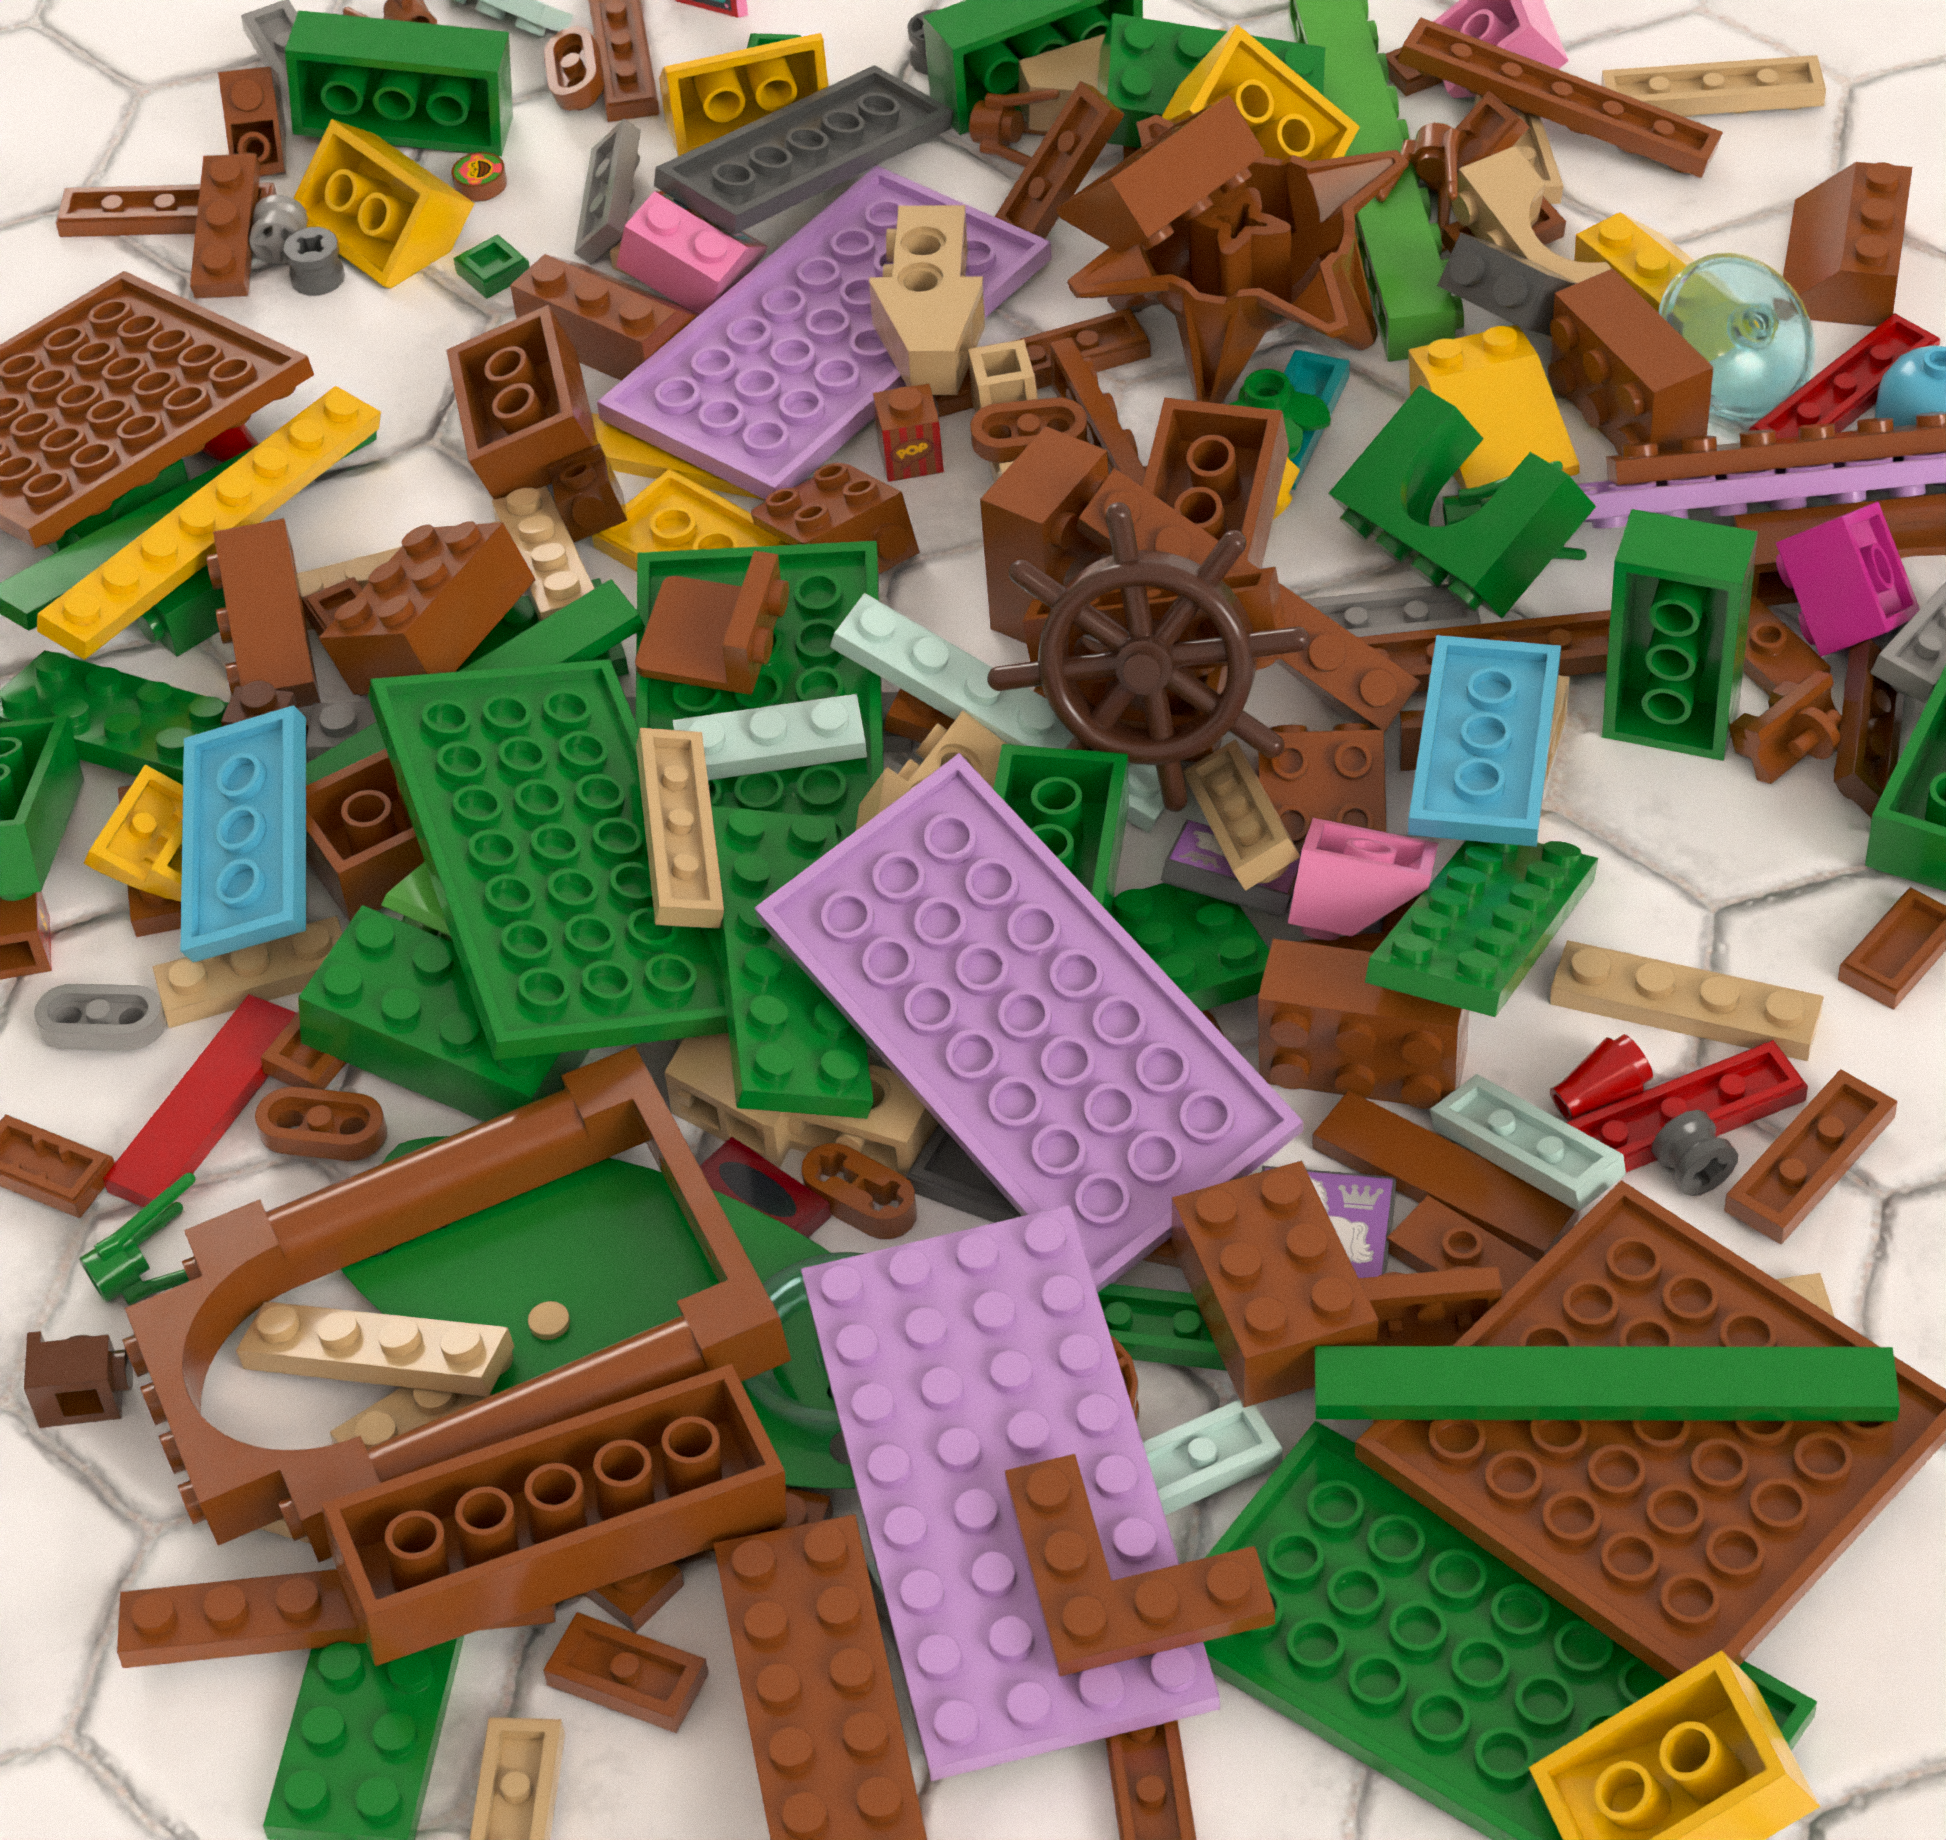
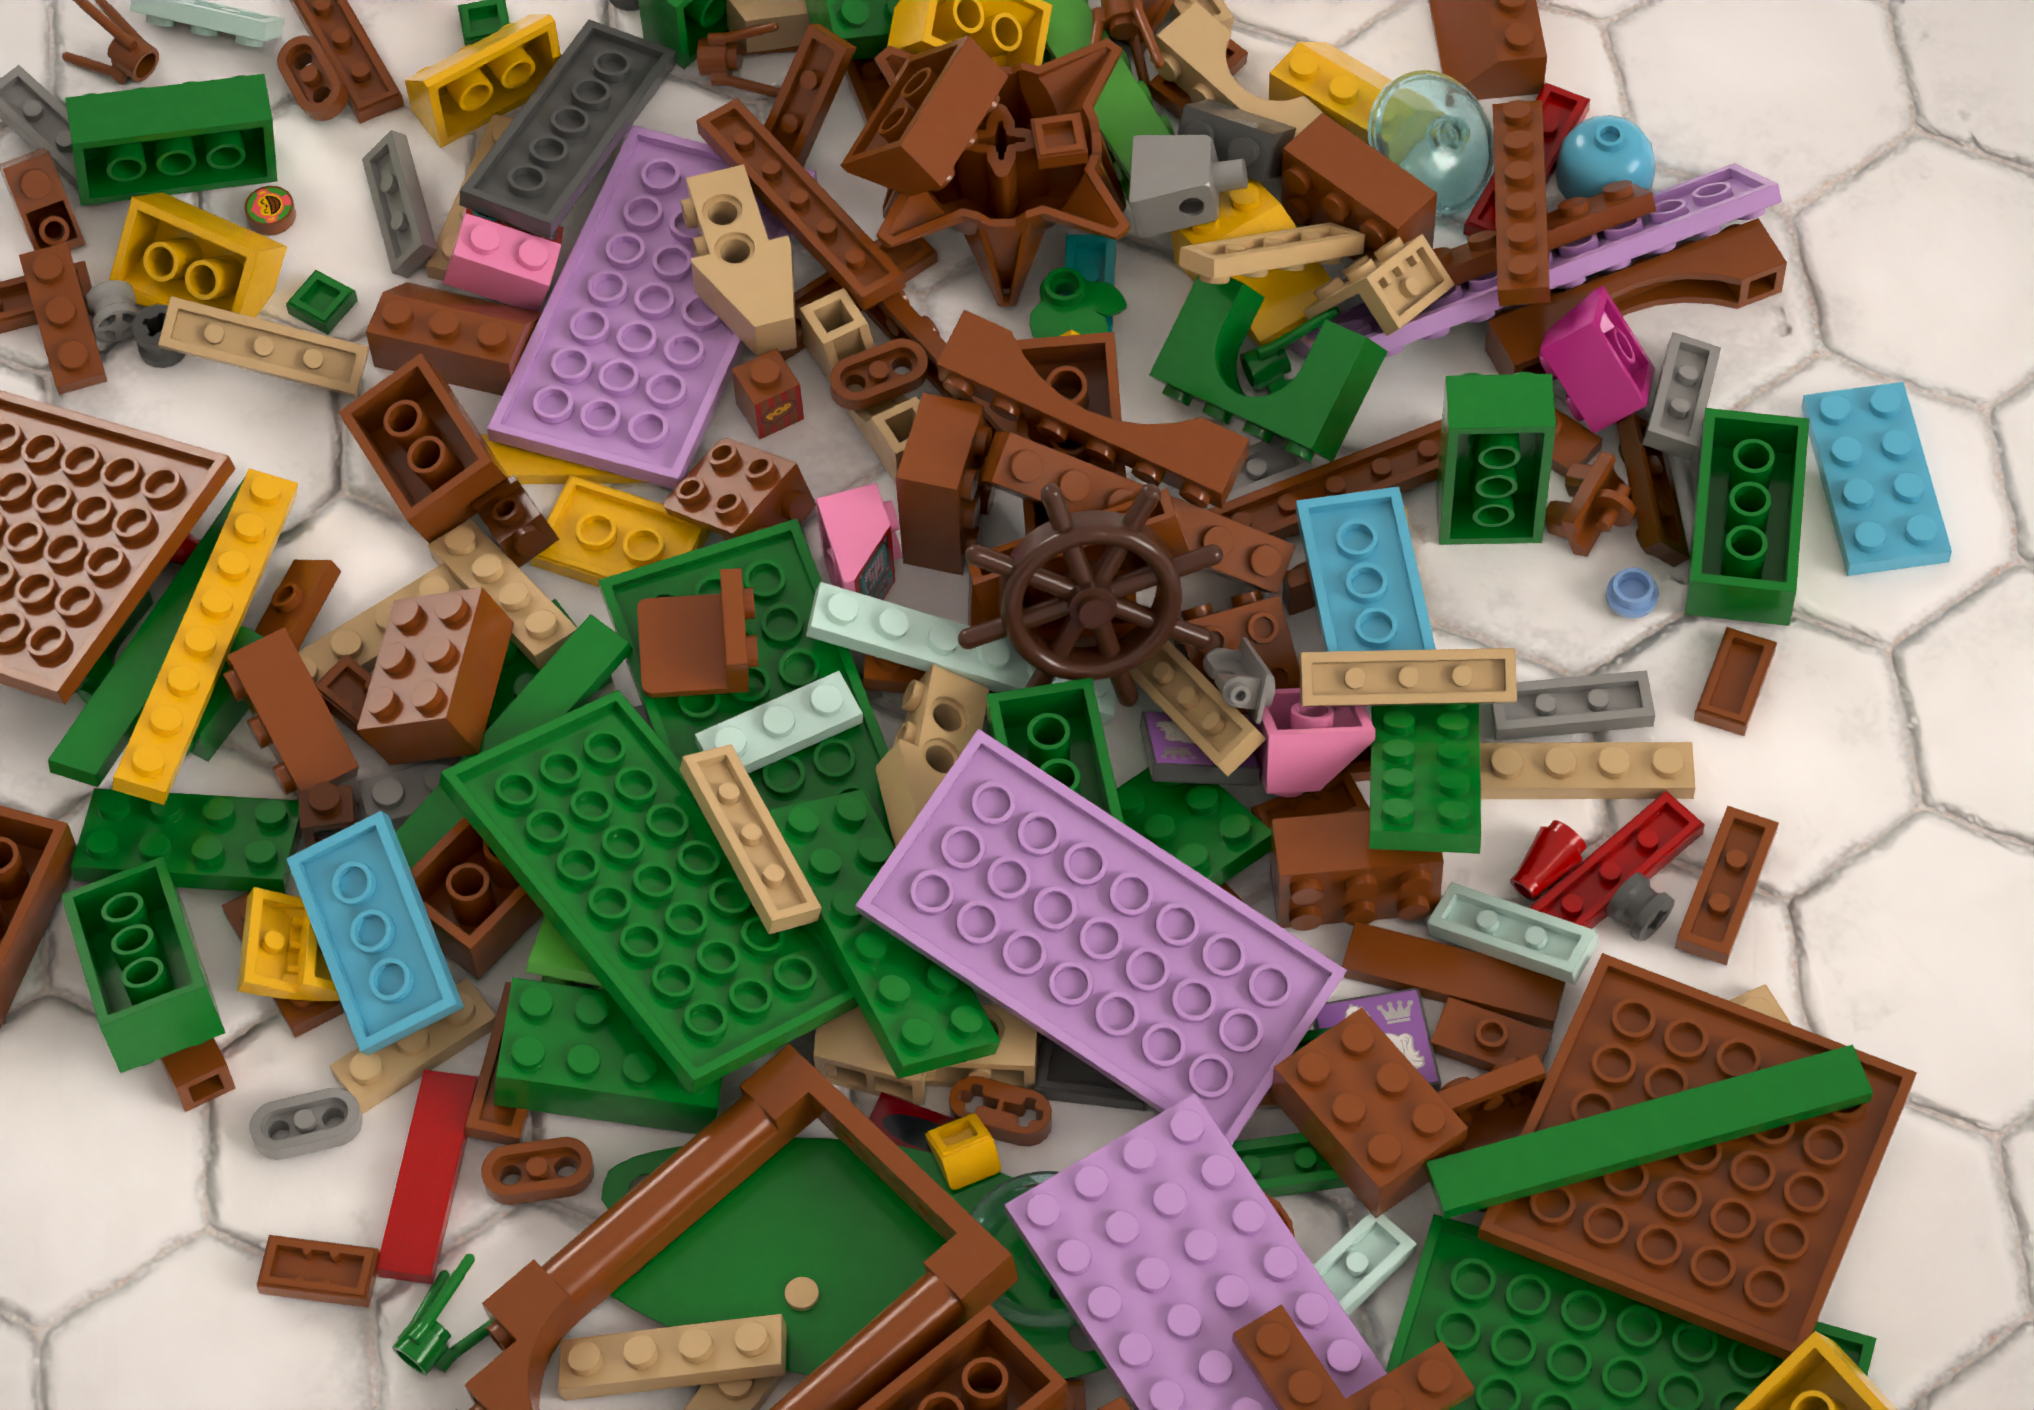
camera: 20 degrees left, 10 degrees up
(334, 523) = (299, 598): none -> dark orange plate
(401, 280) = (263, 346): none -> tan plate
(792, 1216) = (964, 1151): none -> yellow slope
(937, 577) = (859, 540): none -> bright pink slope
(1016, 261) = (802, 204): none -> dark orange plate
(1299, 795) = (1241, 678): none -> light grey hinge
(1301, 229) = (1059, 140): none -> dark orange tile
(1317, 547) = (1187, 455): none -> dark orange arch
(1426, 306) = (1179, 182): none -> light grey torso
(1479, 384) = (1272, 250): none -> tan plate
(1492, 832) = (1408, 677): none -> tan plate
(1631, 448) = (1392, 286): none -> tan bracket
(1692, 926) = (1576, 706): none -> light grey plate
(1809, 828) = (1632, 593): none -> light blue plate
(1812, 405) = (1520, 203): none -> dark orange plate

